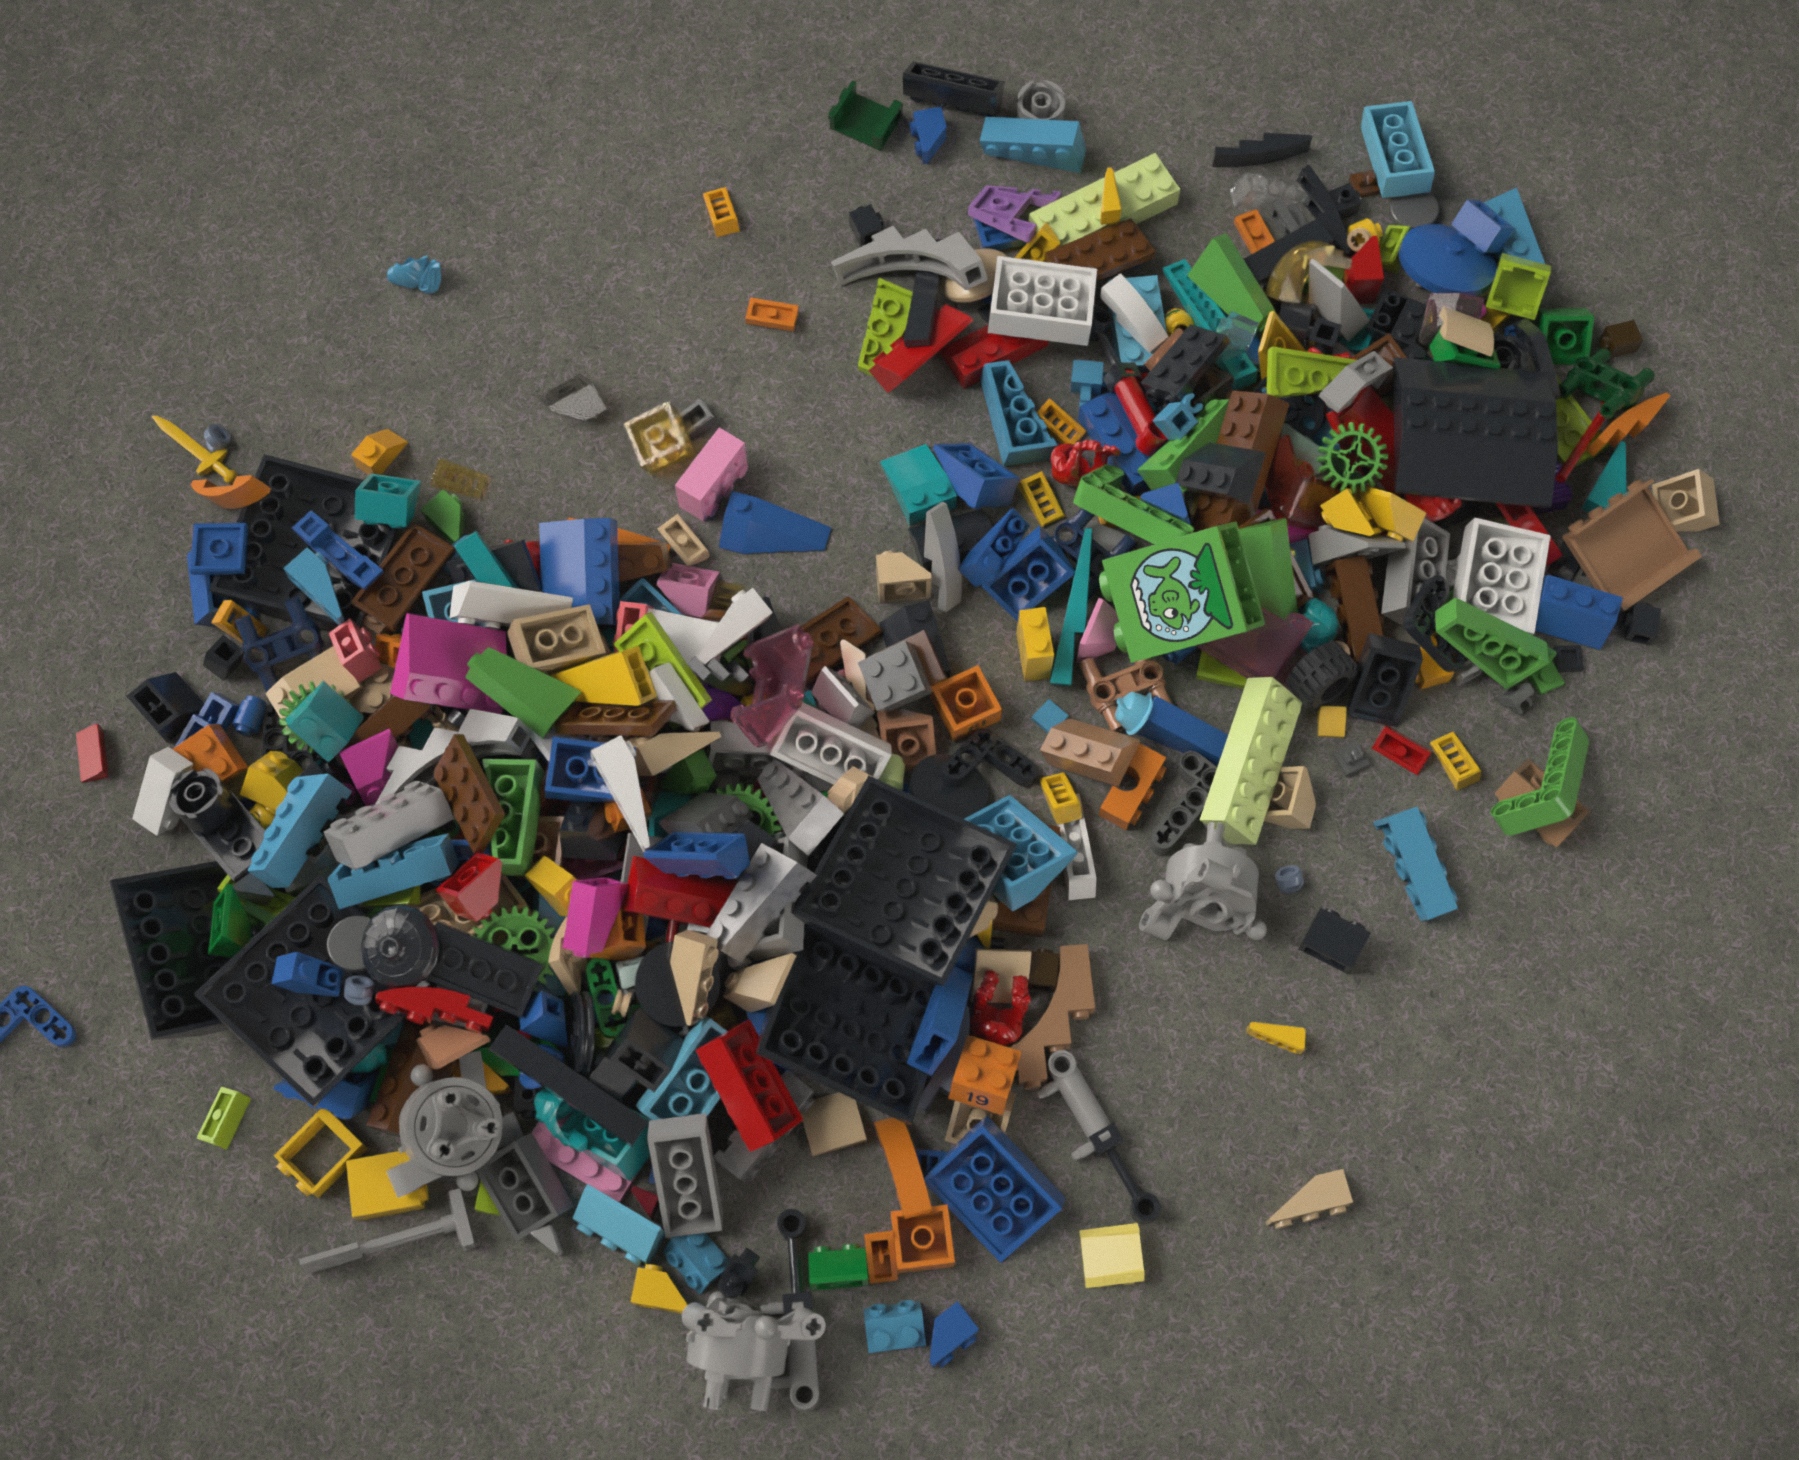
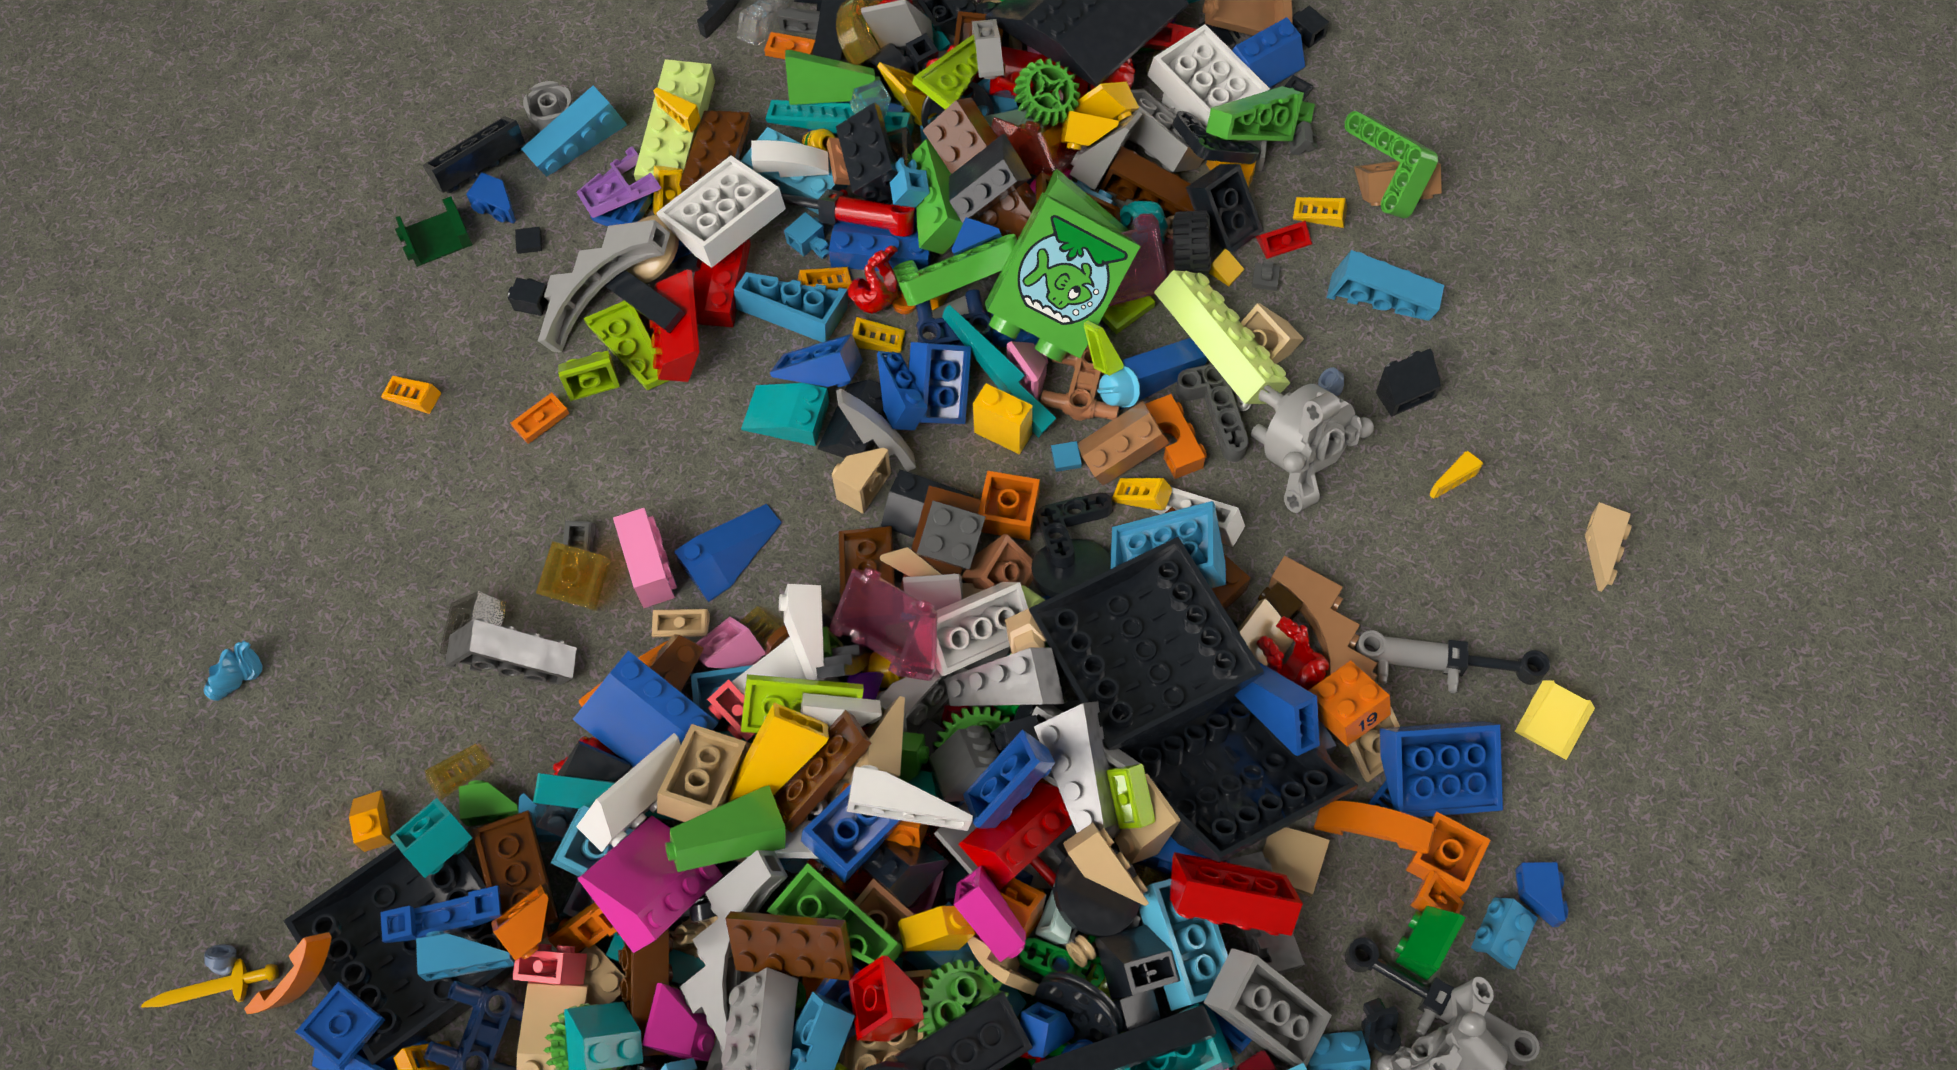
camera: 50 degrees left, 5 degrees down
(363, 607) = (523, 924): none -> orange slope
(565, 444) = (511, 652): none -> wedge
(764, 955) = (1131, 796): none -> lime slope
(832, 318) = (588, 375): none -> lime slope
(916, 186) = (528, 240): none -> black tile
(1146, 679) = (1101, 349): none -> lime slope

